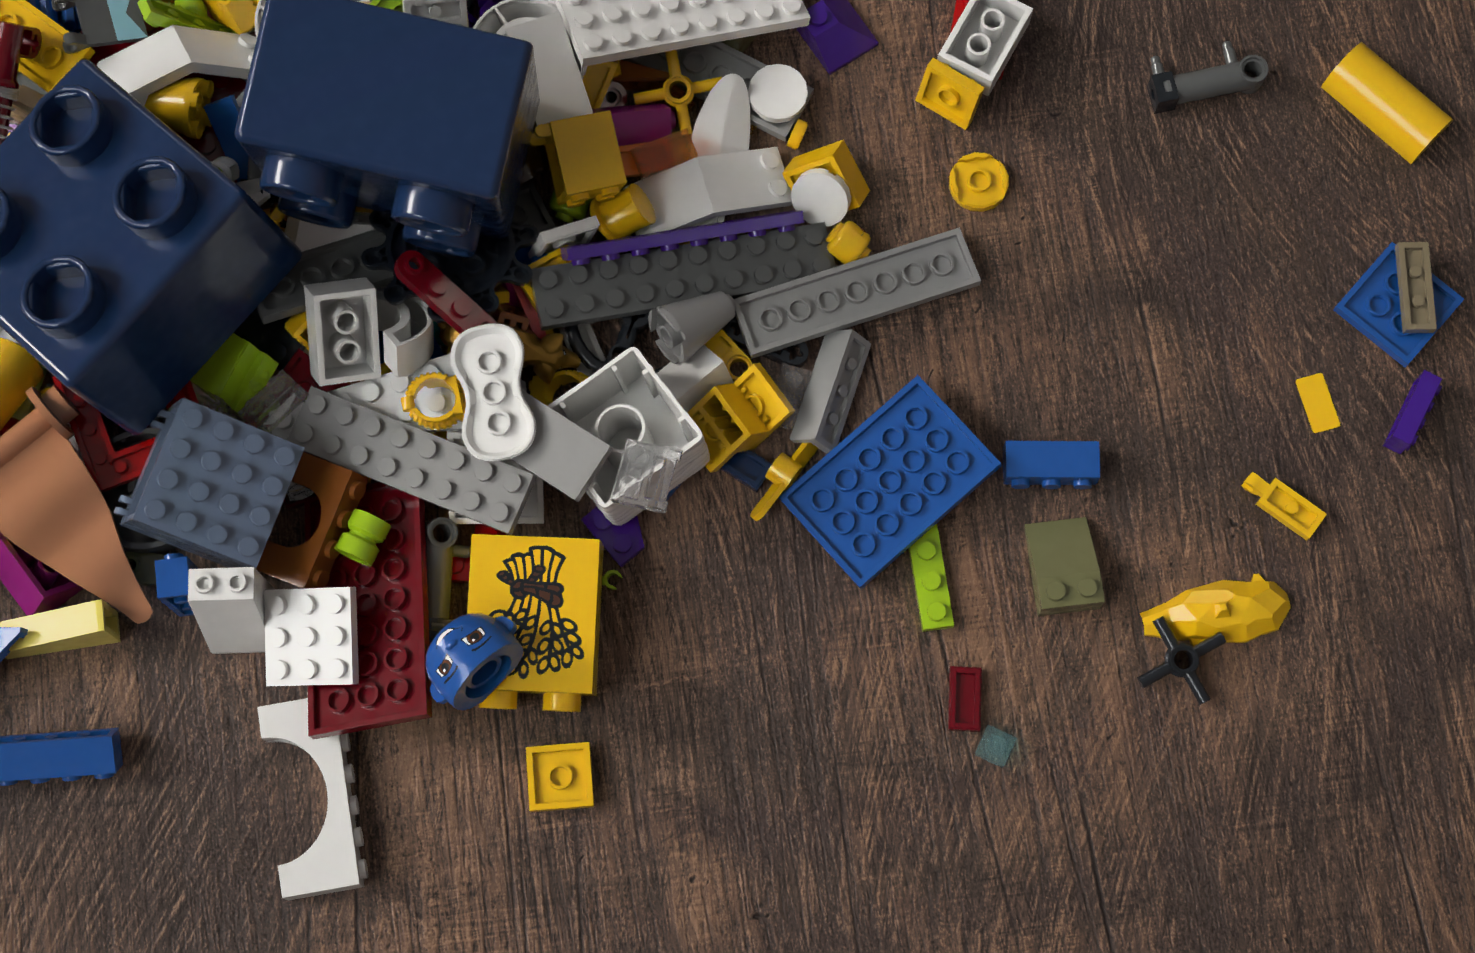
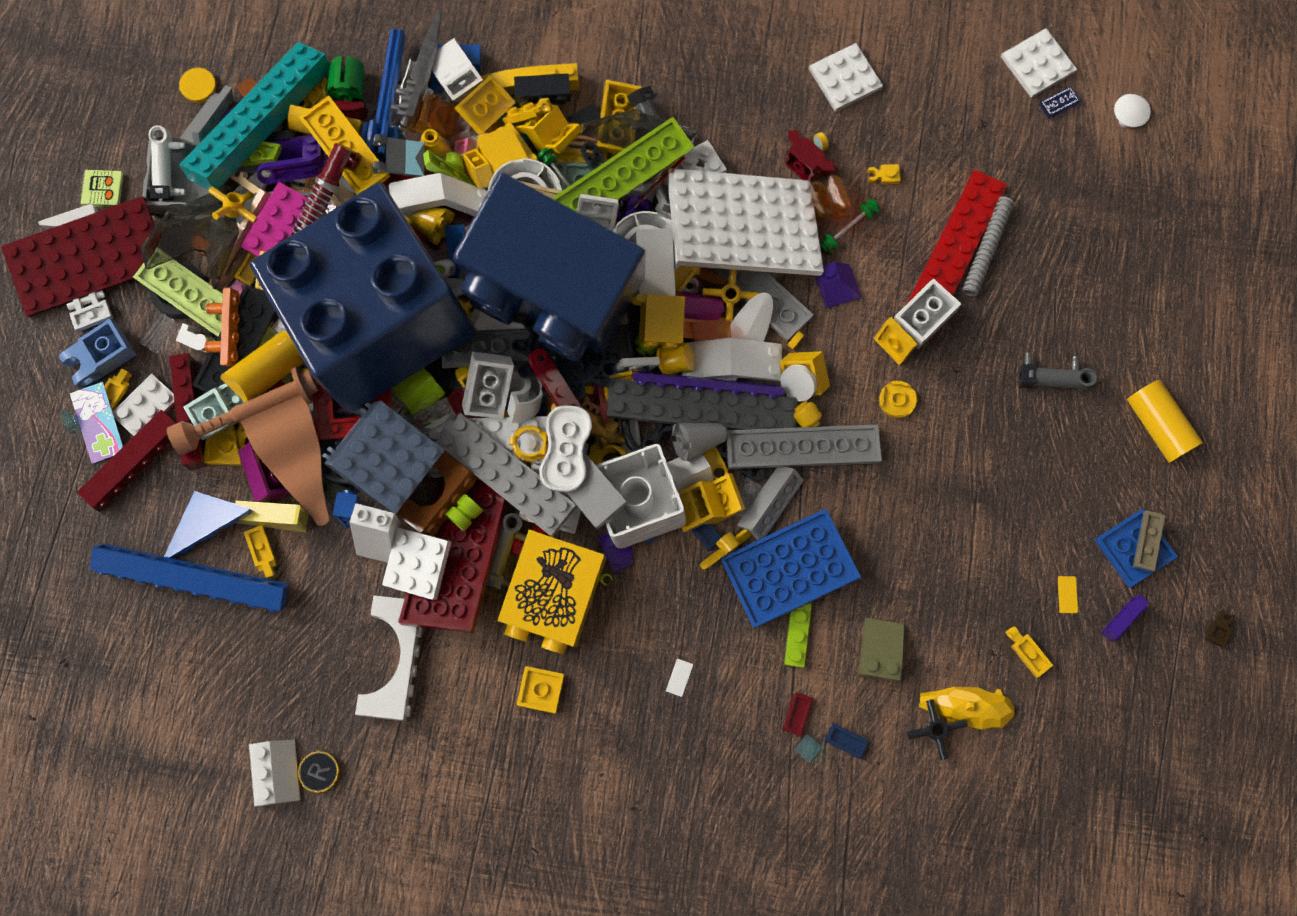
camera: 15 degrees right, 0 degrees up
(59, 690) = (261, 551): none -> yellow hinge
(471, 659) = (506, 605): blue piece -> none
(636, 474) = (636, 523): clear plate -> none
(768, 696) = (679, 677): none -> white sticker
(777, 93) = (791, 311): white tile -> none
(1050, 718) = (846, 741): none -> dark blue tile
(1051, 464) = (892, 585): blue brick -> none

